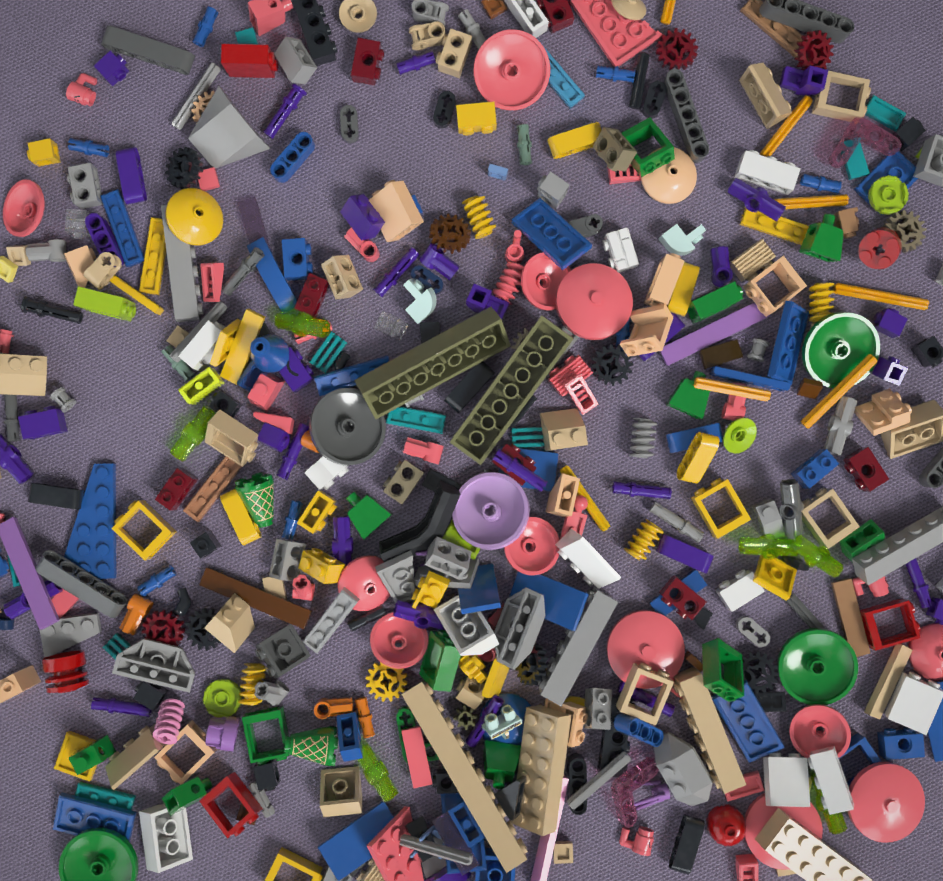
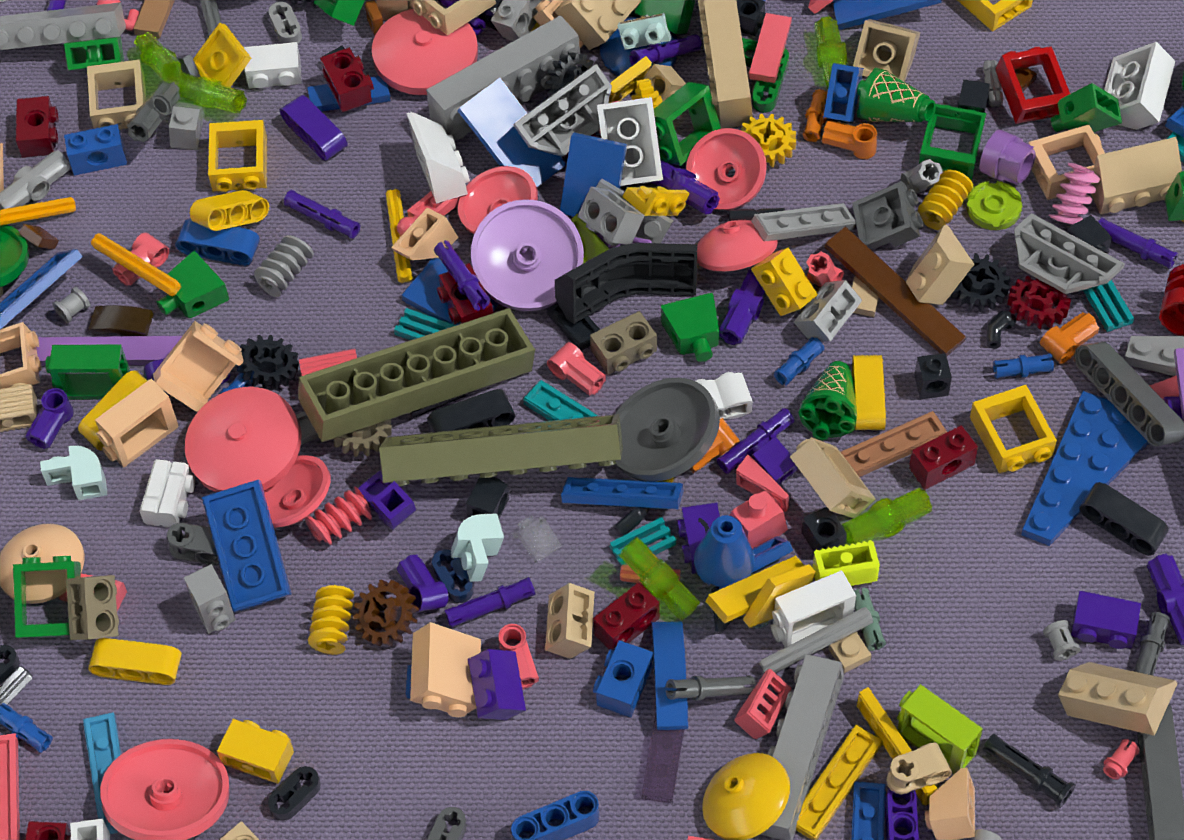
camera: 160 degrees left, 30 degrees down
(317, 511) = (759, 350): yellow brick -> none
(398, 577) = (686, 227): light grey wing -> none
(460, 718) = (688, 66): olive gear -> none
(497, 172) = (270, 667): medium blue tile -> none
(515, 252) = (312, 556): coral piece -> none
(524, 144) = (210, 691): sand green pin -> none
(563, 429) = (378, 313): tan slope -> none
(586, 405) = (329, 339): coral slope -> none
(644, 540) = (353, 156): yellow piece -> none
(680, 524) = (296, 157): light grey pin -> none
(739, 435) = (161, 221): lime dish -> none
(750, 379) = (107, 277): blue tile -> none

